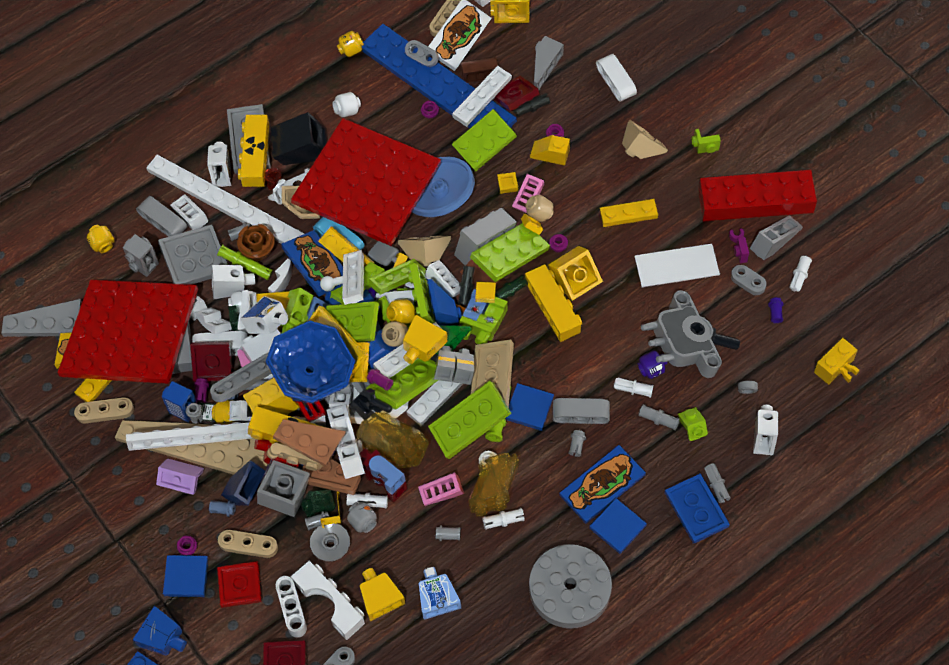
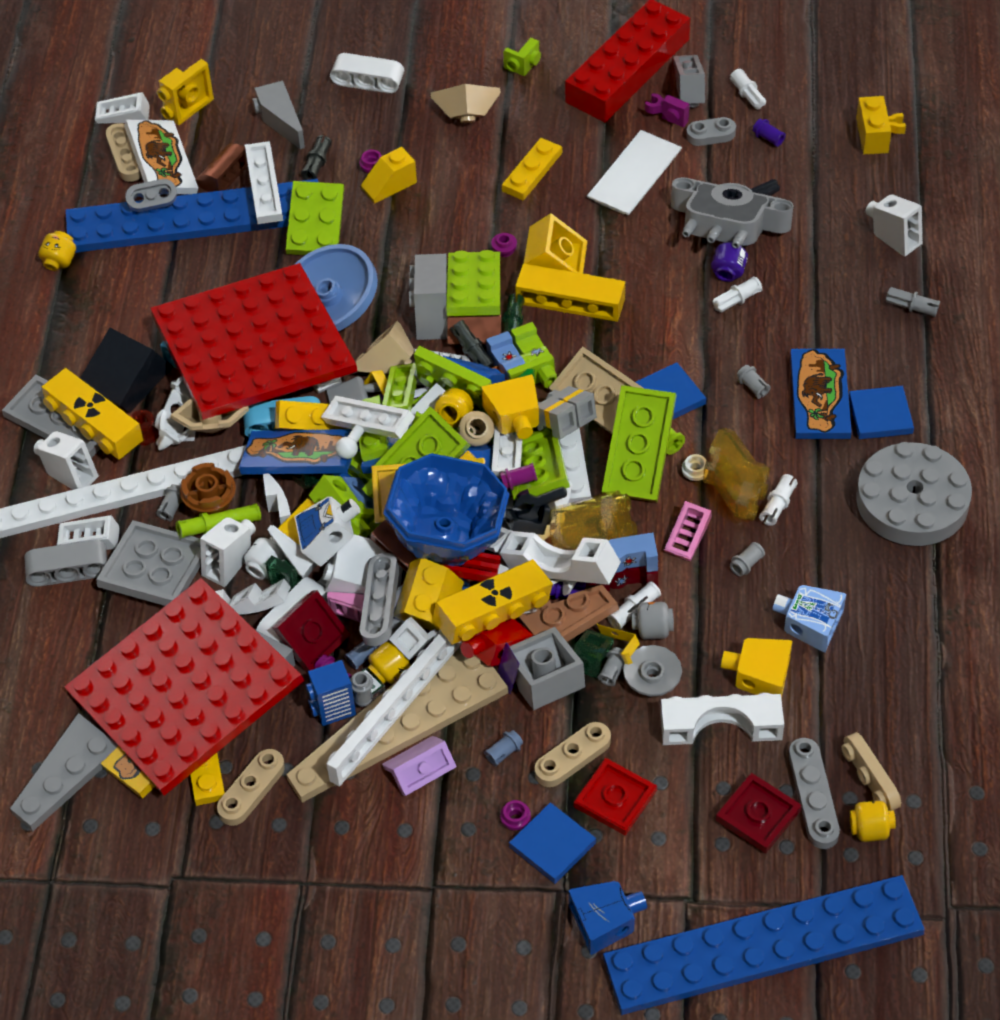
camera: 50 degrees left, 10 degrees down
(100, 238) = (23, 640): yellow head -> none
(140, 255) = (96, 608): light grey brick -> none
(243, 484) = (501, 702): dark blue slope -> none
(289, 597) = (687, 748): white beam -> none
(292, 456) = (526, 619): tan plate -> none
(309, 440) = (528, 584): nougat wing -> none
(346, 104) = (128, 303): white head -> none
(429, 105) = (219, 241): magenta plate -> none
(485, 292) = (503, 330): yellow tile -> none
(507, 182) = (384, 238): yellow tile -> none
(516, 93) = (293, 155): dark red plate -> none
(532, 180) = (417, 212): bright pink slope -> none
(532, 224) = (461, 245): yellow tile -> none
(539, 208) = (449, 227): tan head -> none
(581, 411) = (720, 352): light grey beam -> none
(659, 417) = (793, 297): light grey pin -> none
(693, 423) = (827, 273): lime bracket -> none
(697, 508) = (925, 335): blue plate -> none
(747, 387) = (831, 207): light grey tile -> none

